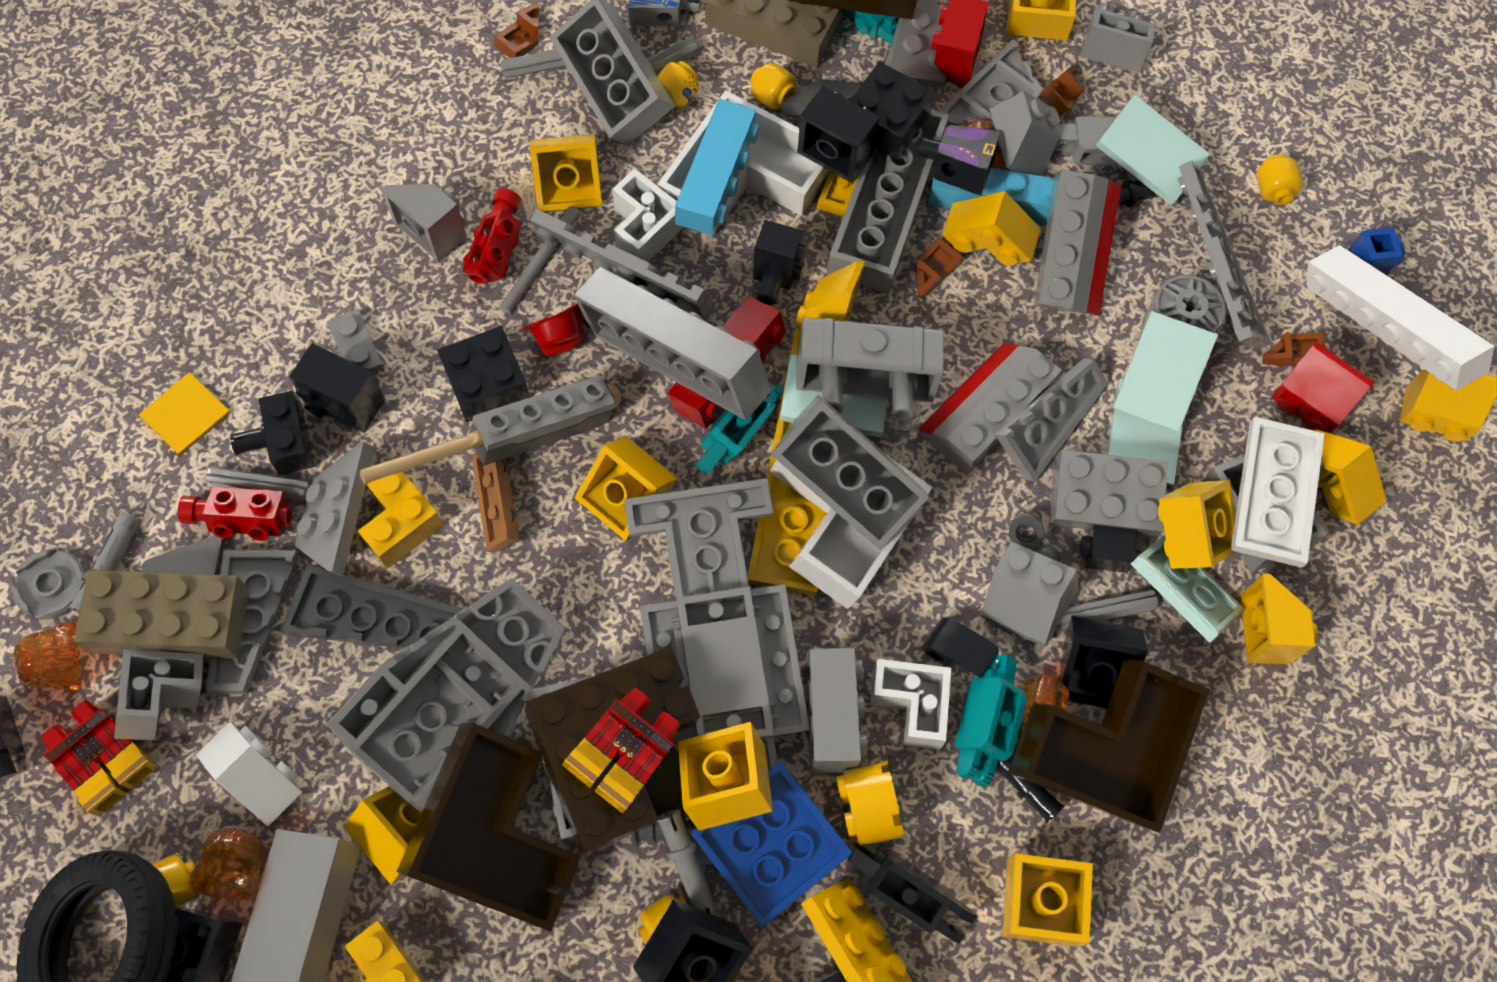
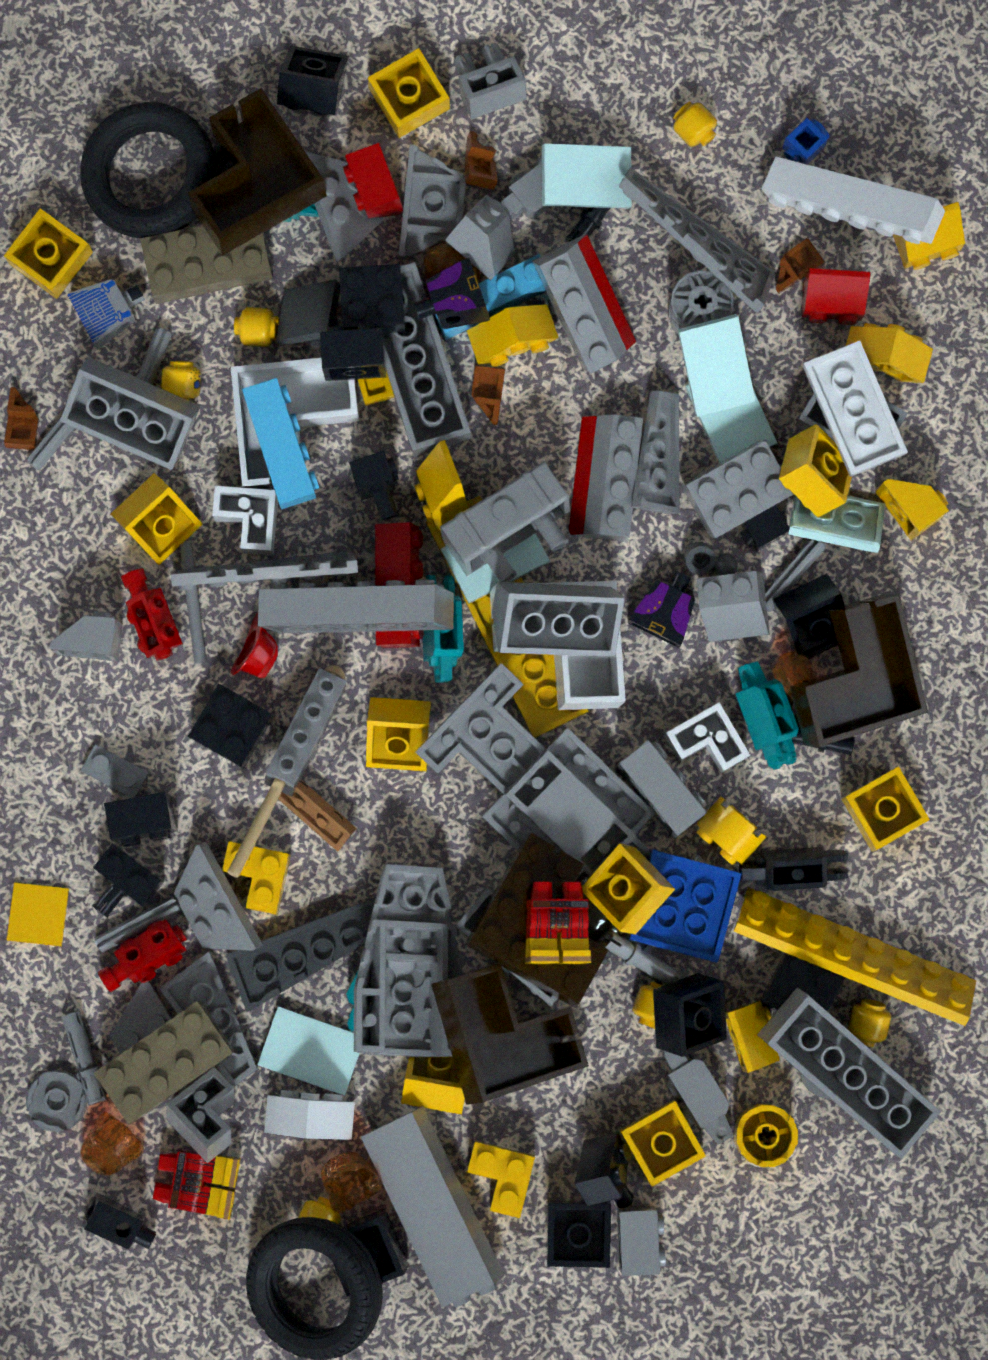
camera: 35 degrees left, 15 degrees up
(297, 707) = (310, 1051): none -> light aqua tile
(958, 554) = (665, 610): none -> torso
(960, 644) = (713, 678): black panel -> none

